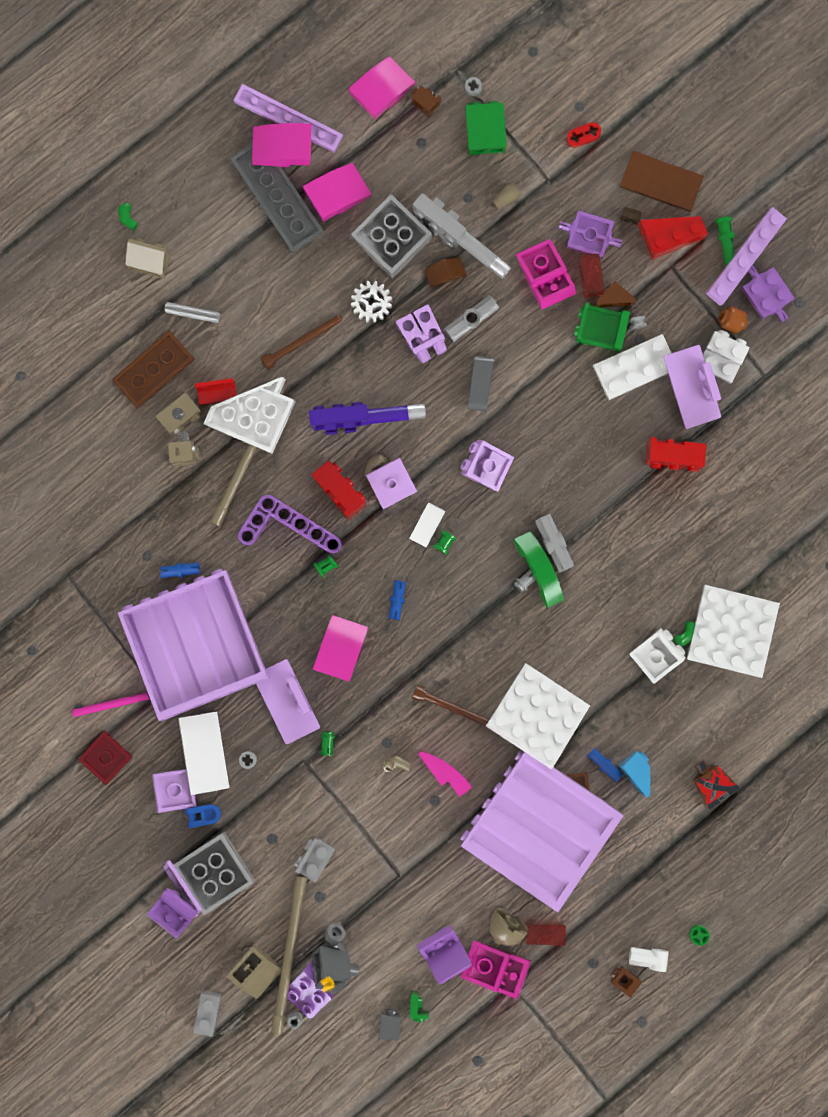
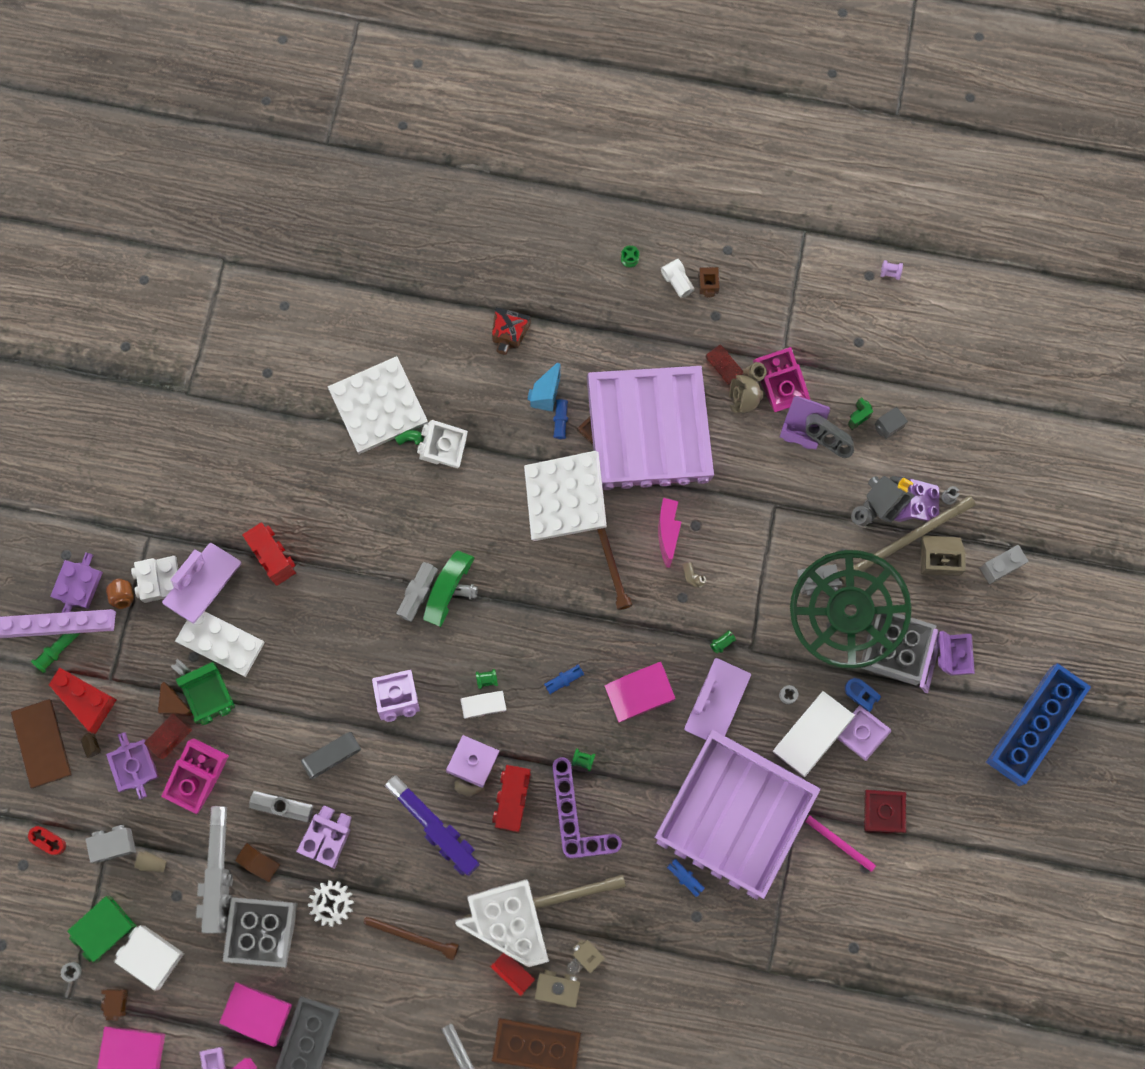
camera: 130 degrees left, 10 degrees down
(70, 928) = (1038, 724): none -> blue brick
(269, 845) = (850, 597): none -> dark green dish
(418, 965) = (832, 443): none -> dark grey beam
(438, 146) = (148, 957): none -> white brick
(517, 951) = (756, 371): none -> dark tan cone
(542, 177) = (111, 844): none -> light grey brick

